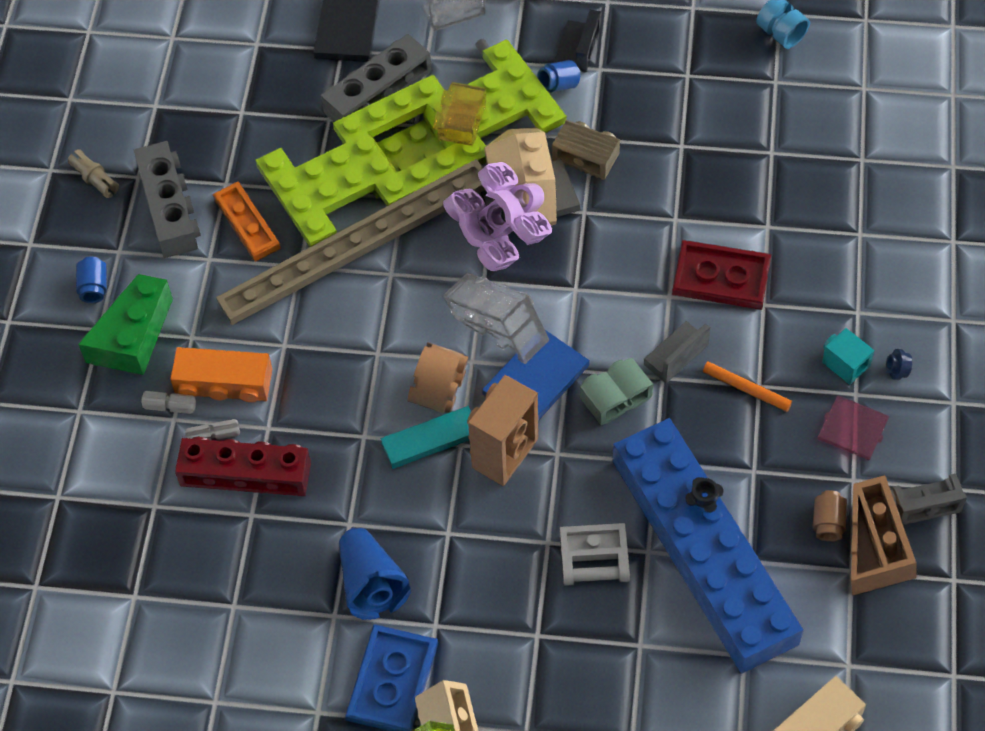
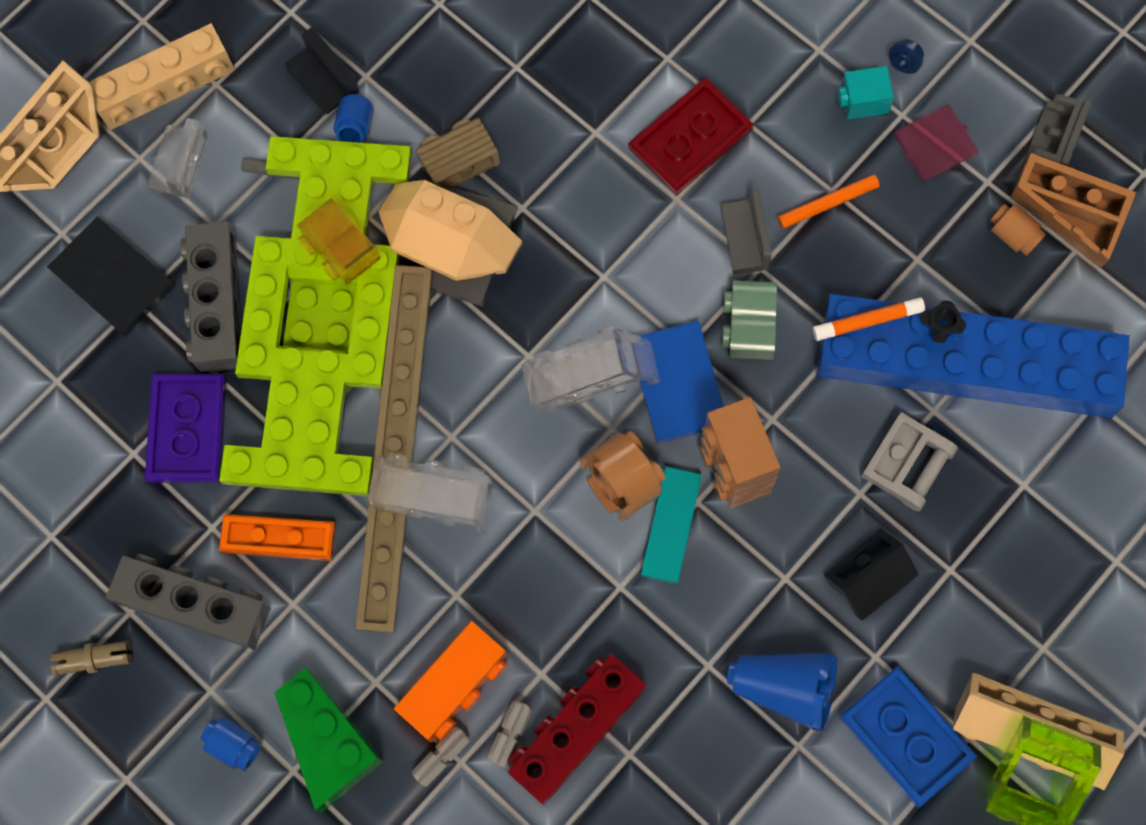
camera: 50 degrees left, 15 degrees up
(280, 124) = (185, 428): none -> dark purple tile
(338, 277) = (432, 491): none -> clear wedge
(471, 212) = (512, 319): lavender piece -> none
(491, 582) = (872, 573): none -> black panel
(667, 447) = (868, 319): none -> orange bar

